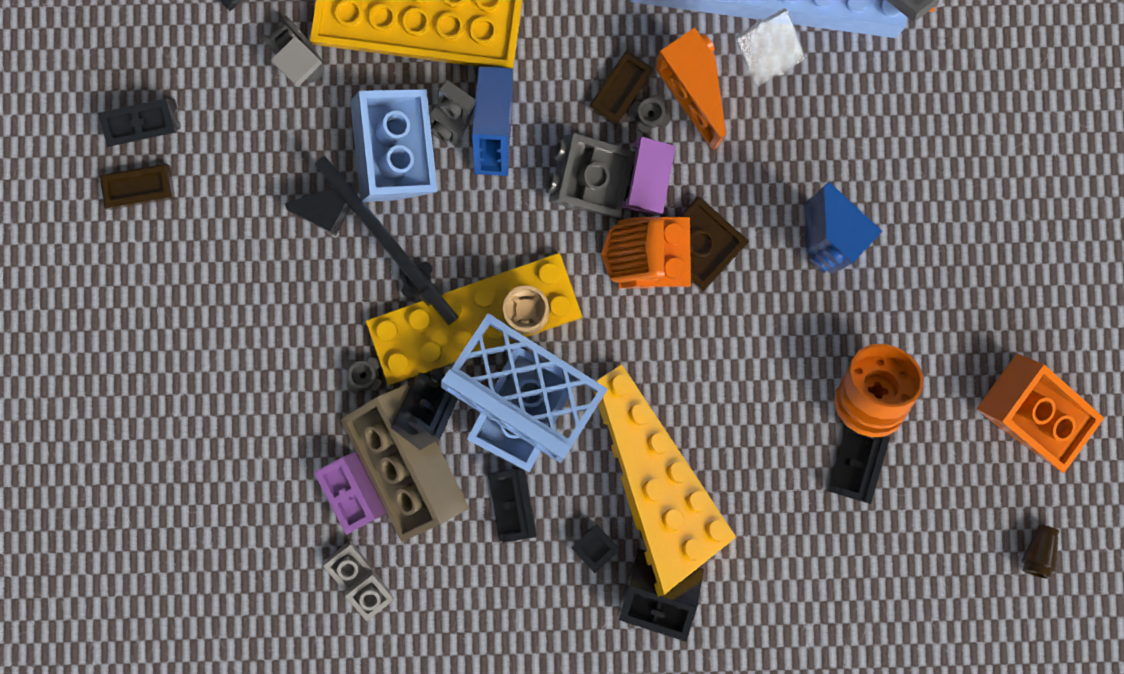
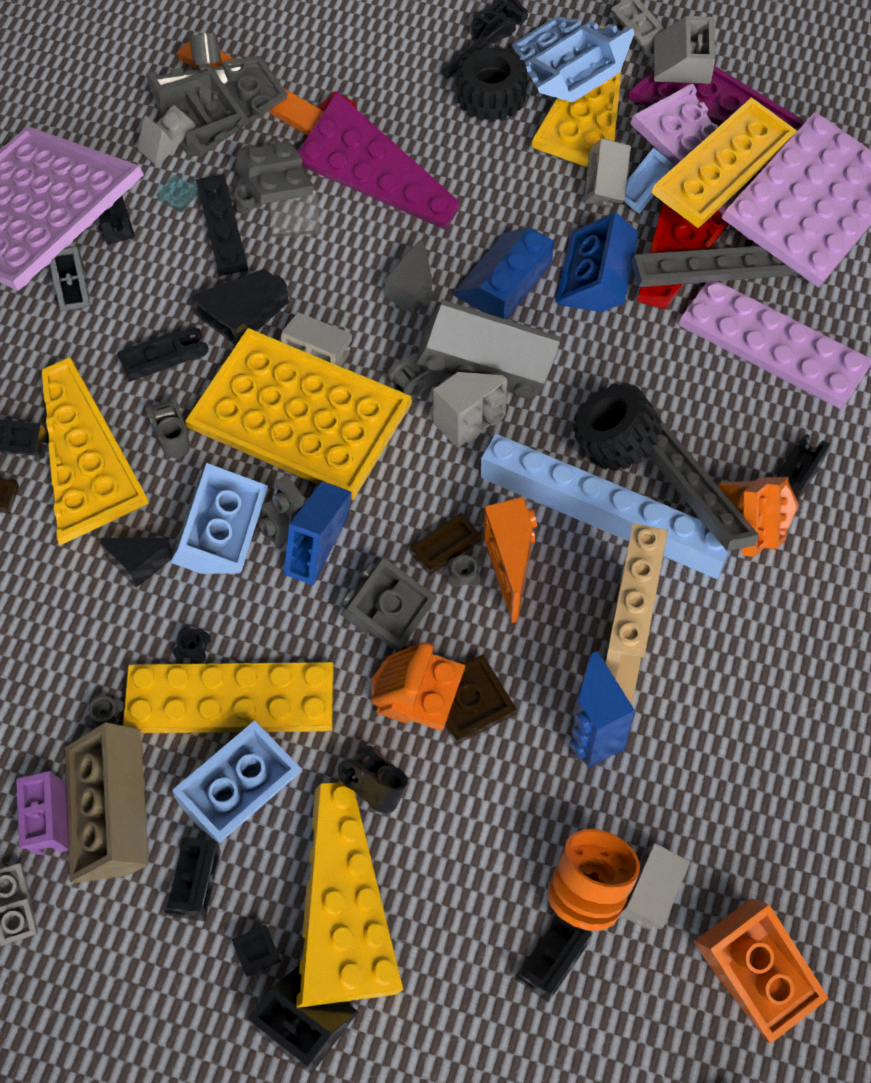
camera: 20 degrees right, 25 degrees down
(231, 123) = (86, 463): none -> yellow wing
(296, 61) = (164, 427): light grey tile -> none
(424, 411) = (146, 753): black hinge -> none
(431, 293) = (196, 653): black bar -> none
(506, 413) = (216, 770): light blue fence -> none
(526, 309) = (277, 692): tan wheel -> none
(642, 356) = (376, 779): none -> black piece
(650, 177) = (440, 616): medium lavender hinge -> none
(770, 47) = (593, 546): clear piece -> none
(841, 113) = (635, 605): none -> tan panel
(936, 362) = (655, 887): none -> light grey hinge

